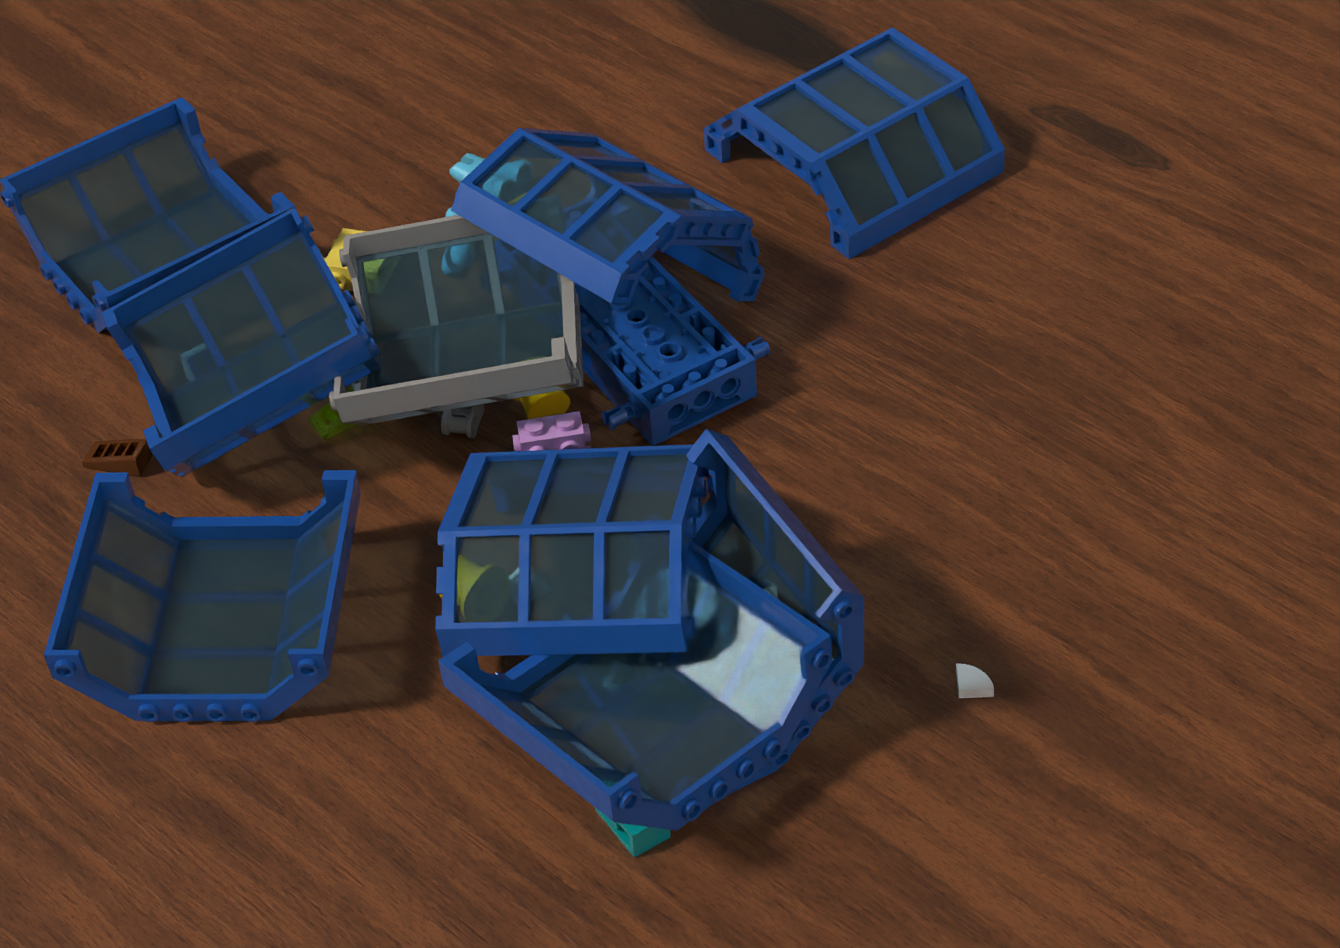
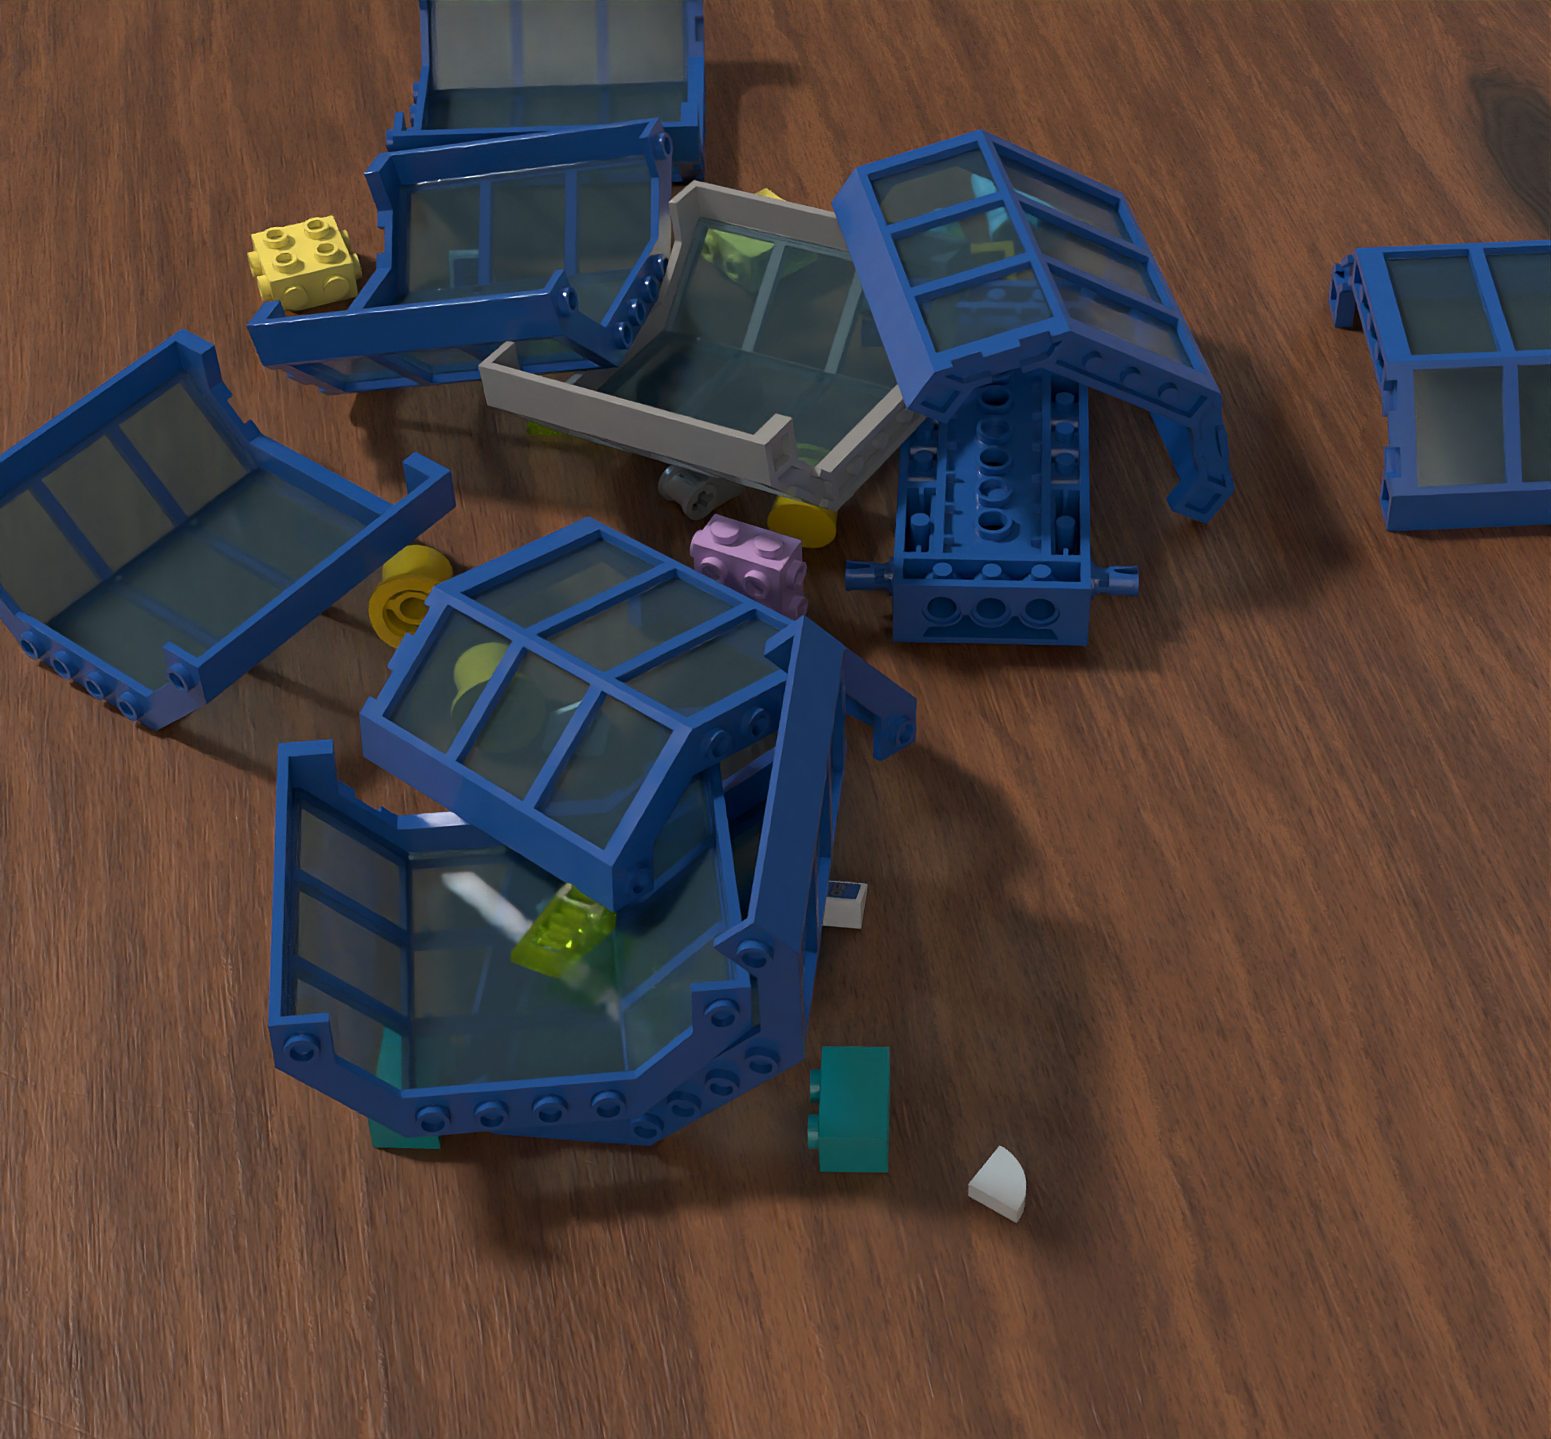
camera: 35 degrees right, 0 degrees up
(82, 409) = (305, 264): none -> light yellow brick
(373, 563) = (399, 599): none -> yellow piece
(664, 673) = (567, 924): none -> clear neon green slope
(877, 692) = (852, 1109): none -> teal brick

